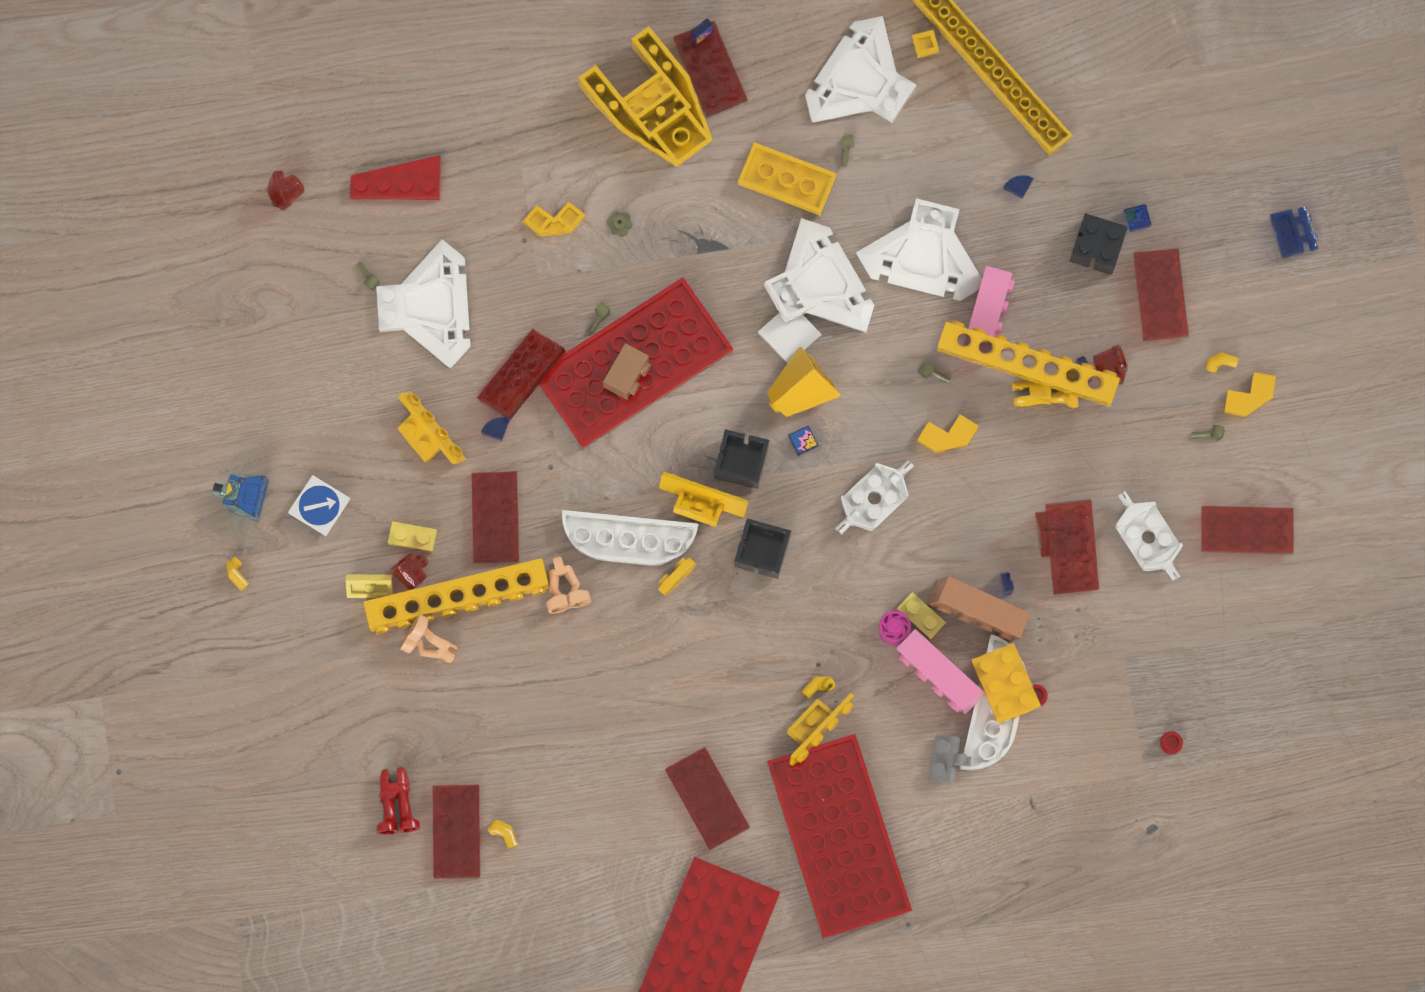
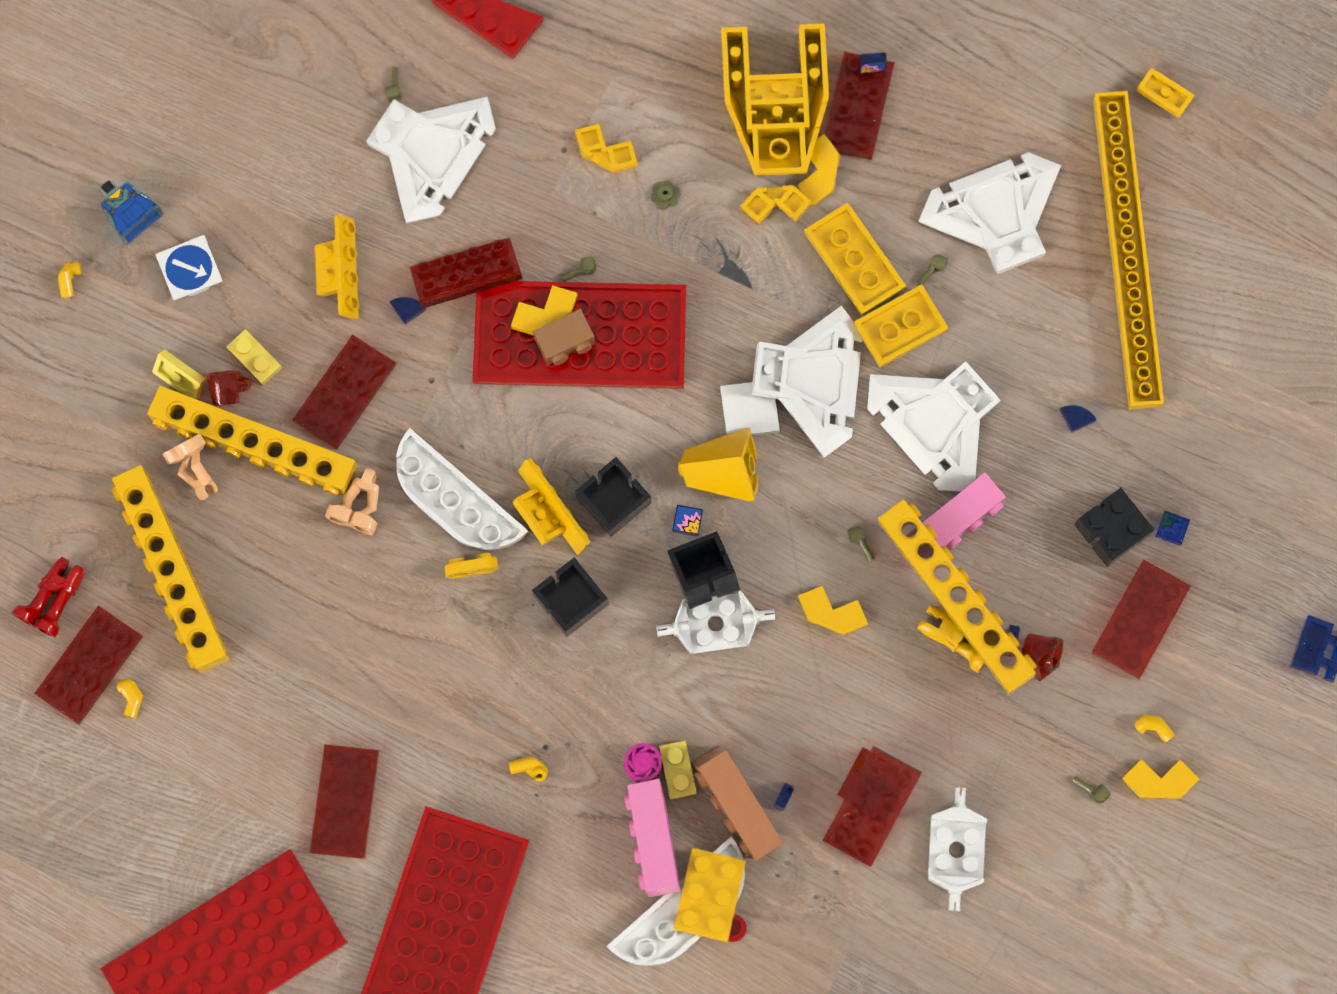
camera: 35 degrees right, 0 degrees up
(398, 680) = (138, 482): none -> yellow brick
(595, 373) = (559, 304): none -> yellow tile
(708, 168) = (765, 200): none -> yellow tile
(725, 139) = (821, 182): none -> yellow tile
(813, 723) = (496, 802): yellow bracket -> none
(839, 467) = (703, 569): none -> black piece
(853, 204) = (900, 326): none -> yellow plate
(925, 44) = (1083, 219): yellow plate -> none
(946, 759) = (599, 928): light grey plate -> none
(1247, 530) = (1060, 912): clear red tile -> none

